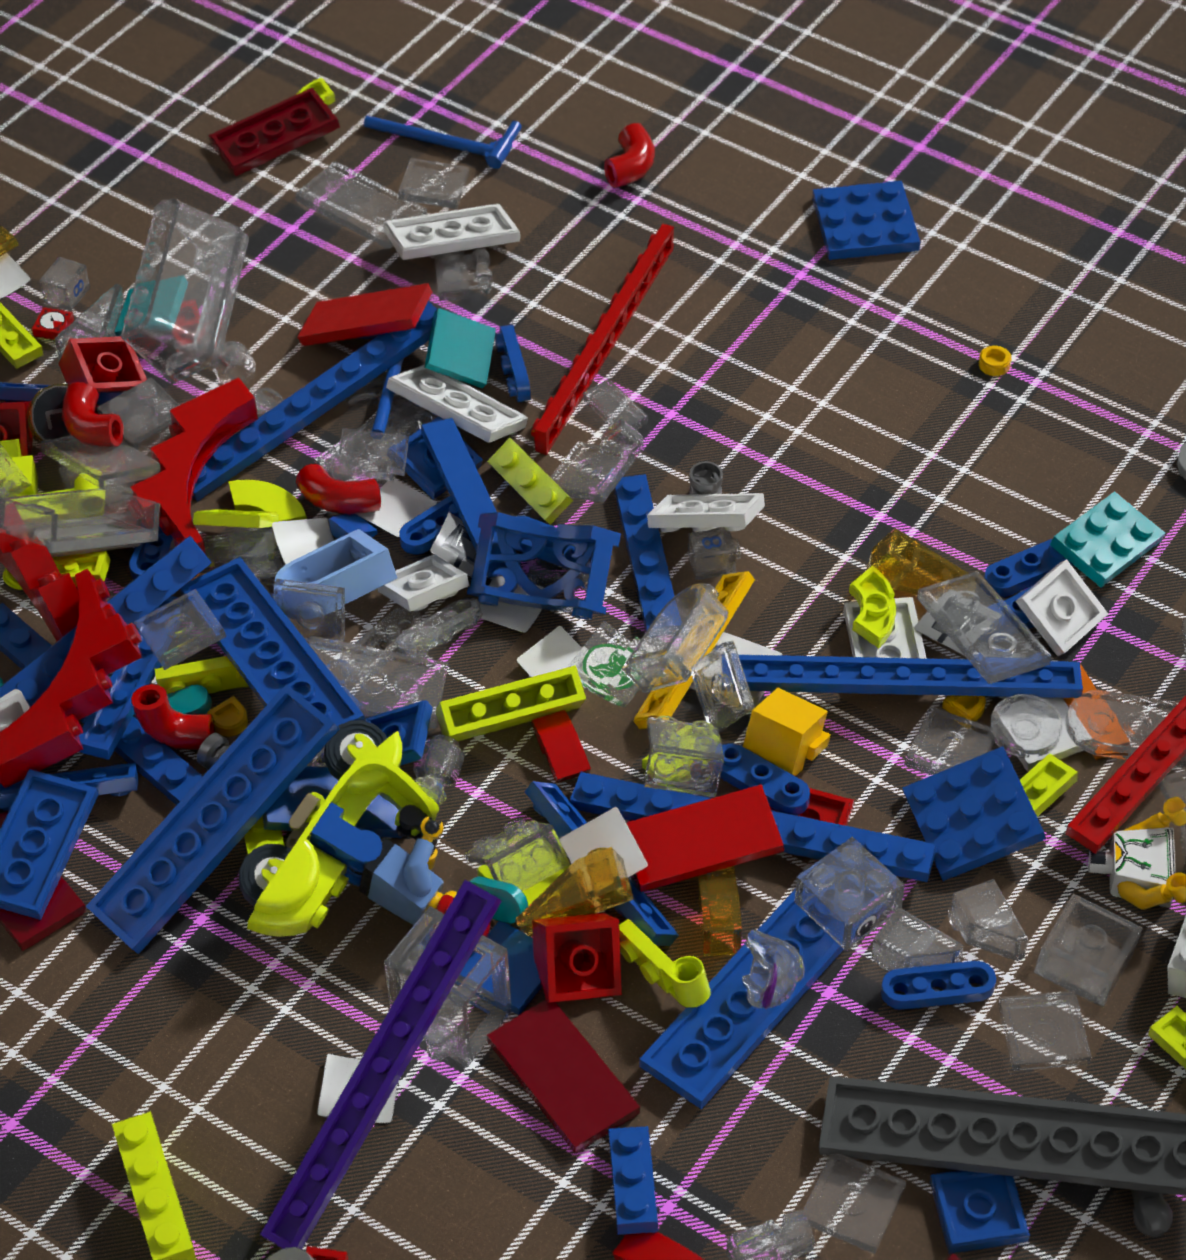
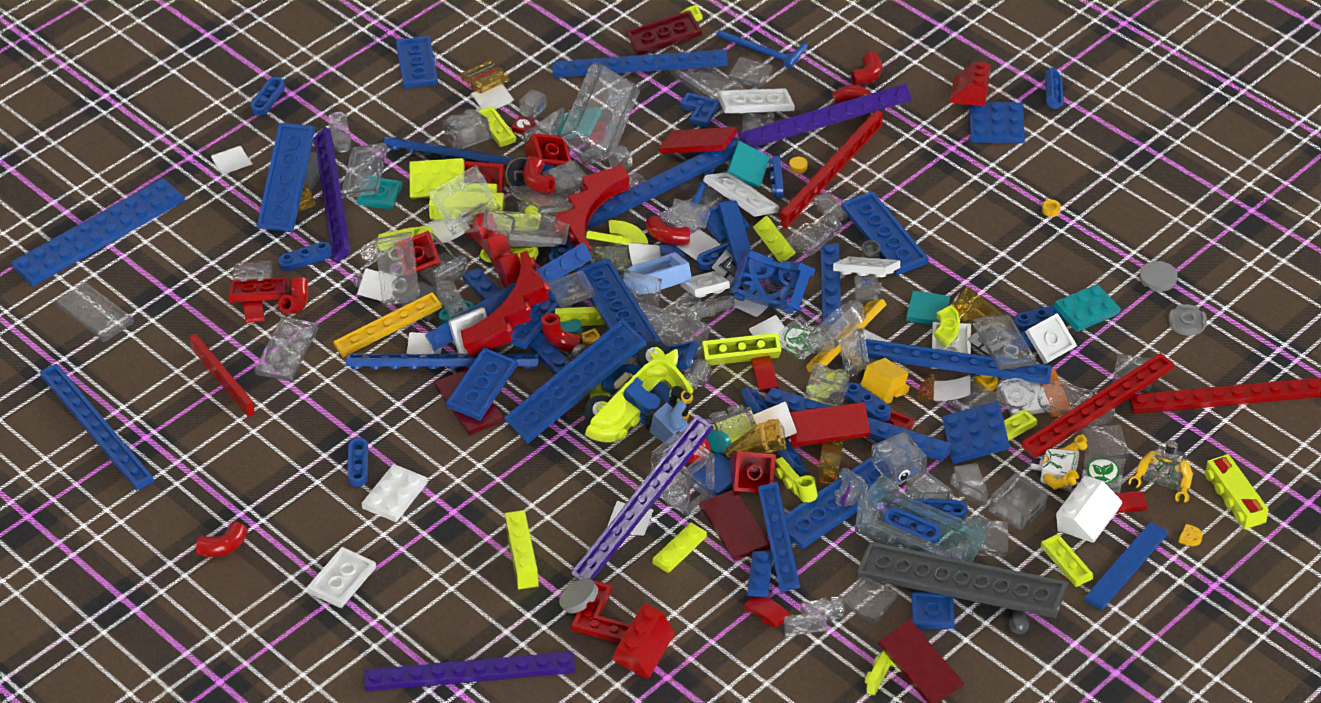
camera: 10 degrees right, 5 degrees down
(245, 188) = (643, 63): none -> blue plate
(363, 253) = (702, 107): none -> blue plate
(464, 1141) = (679, 547): none -> neon yellow plate
(545, 336) = (798, 165): none -> yellow tile
(576, 245) = (826, 116): none -> dark purple plate
(621, 200) = (849, 92): none -> red cylinder
(656, 1096) = (779, 537): none -> blue plate
(715, 434) = (880, 225): none -> blue plate
(812, 160) = (971, 85): none -> red slope
(825, 574) = (924, 307): none -> teal tile
(862, 735) = (926, 389): none -> clear orange slope
(890, 1020) = (906, 520): none -> blue plate
(908, 729) = (952, 389): none -> white sticker
(914, 1030) = (958, 537): none -> windscreen
(947, 151) = (1054, 88): none -> blue plate

